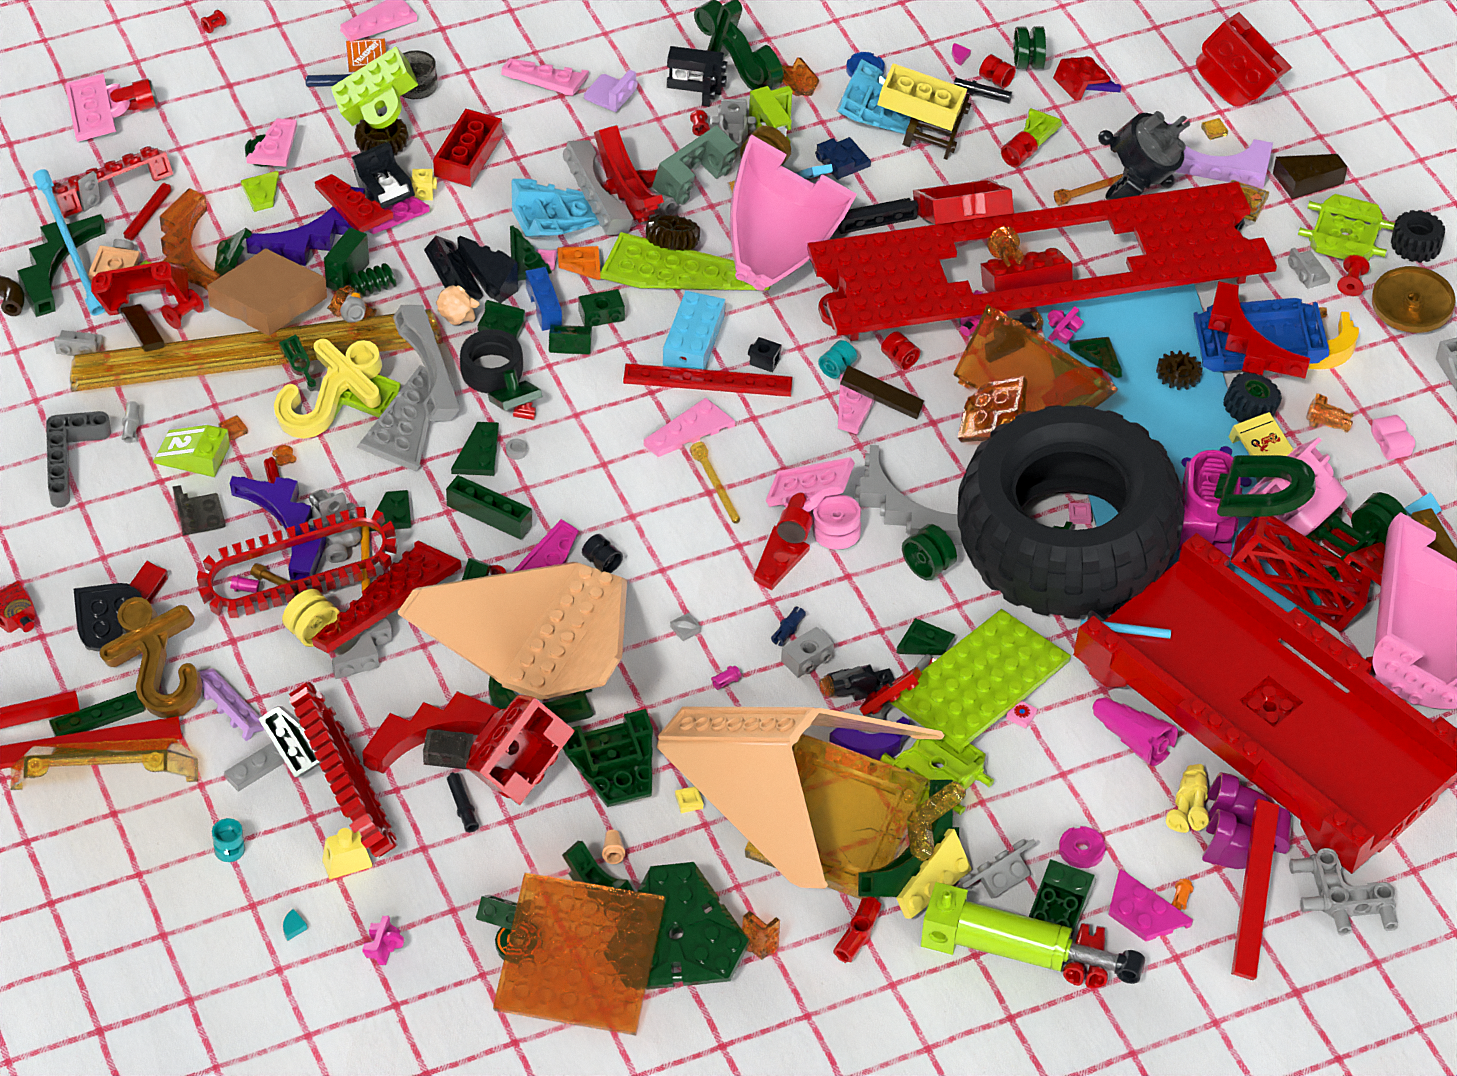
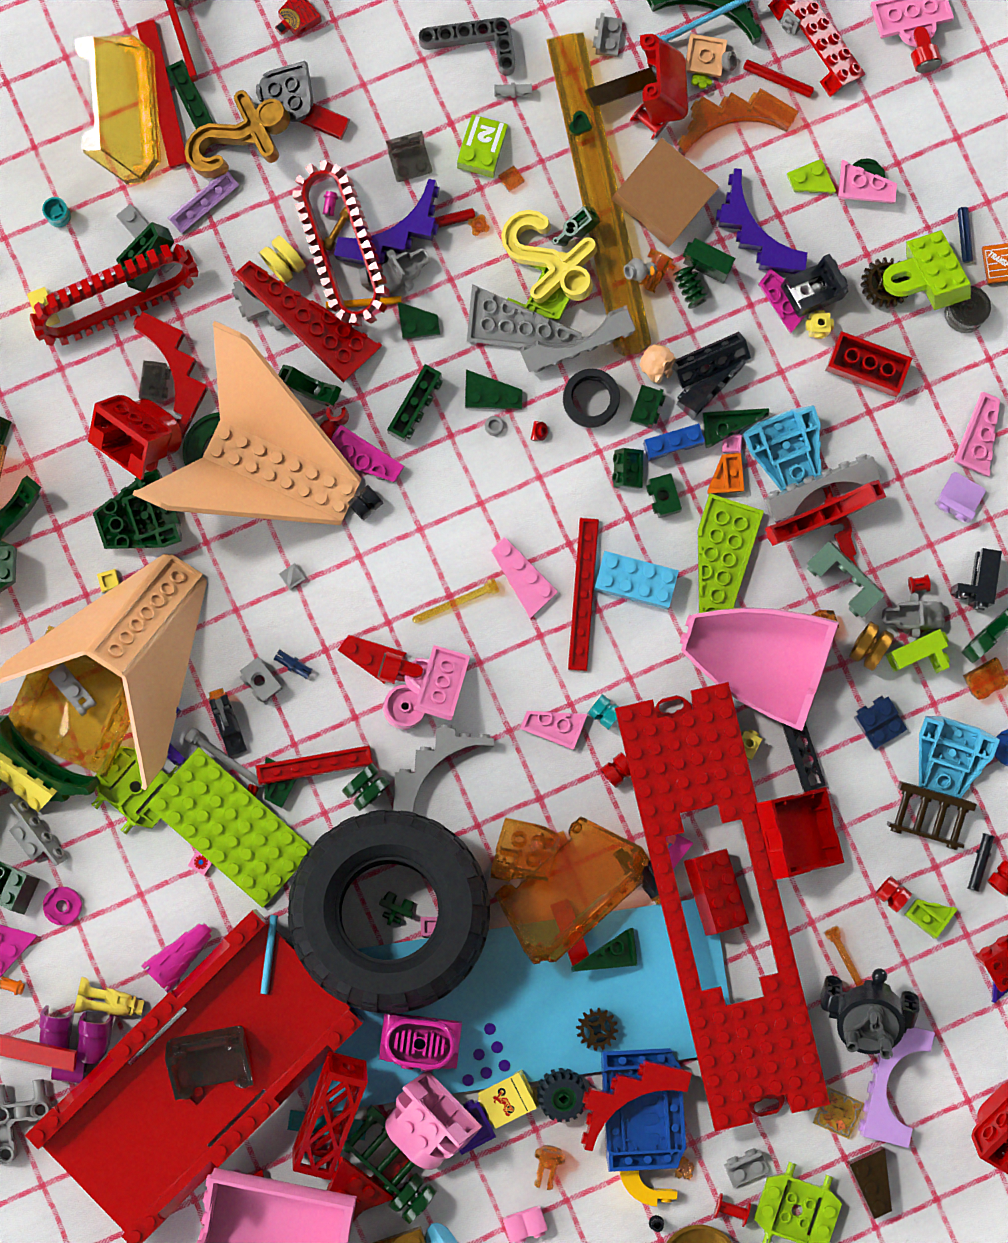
camera: 85 degrees right, 35 degrees up
(180, 356) = (579, 124): none -> dark green tile
(229, 252) = (720, 155): dark green wing -> none
(352, 205) = (772, 263): red wing -> none
(464, 808) = (90, 400): black axle -> none
(514, 392) = (550, 420): dark green tile -> none
(613, 849) = (56, 519): light nougat cone -> none
(669, 205) = (807, 549): light grey cone -> none
(672, 232) = (764, 549): dark brown gear -> none
(726, 677) = (235, 611): dark pink pin -> none
(765, 354) = (611, 653): black brick -> none
(814, 172) = (835, 691): medium azure tile -> none
(828, 816) = (72, 689): none -> light grey plate
(874, 701) = (199, 745): red wing -> none
(882, 392) = (563, 751): dark brown tile -> none
(905, 604) = (313, 765): none -> red tile
(920, 818) = (56, 771): clear yellow beam -> none
(922, 97) = (938, 797): light yellow brick -> none
(1005, 243) = (739, 869): clear orange piece -> none
(1057, 318) = (653, 921): dark pink hips -> none
(1214, 129) = (940, 1092): clear yellow tile -> none
(1246, 676) = (208, 1060): none -> clear smoke windscreen
(1294, 496) = (366, 1088): dark green piece -> none
(1376, 337) = (656, 1218): none -> black pin

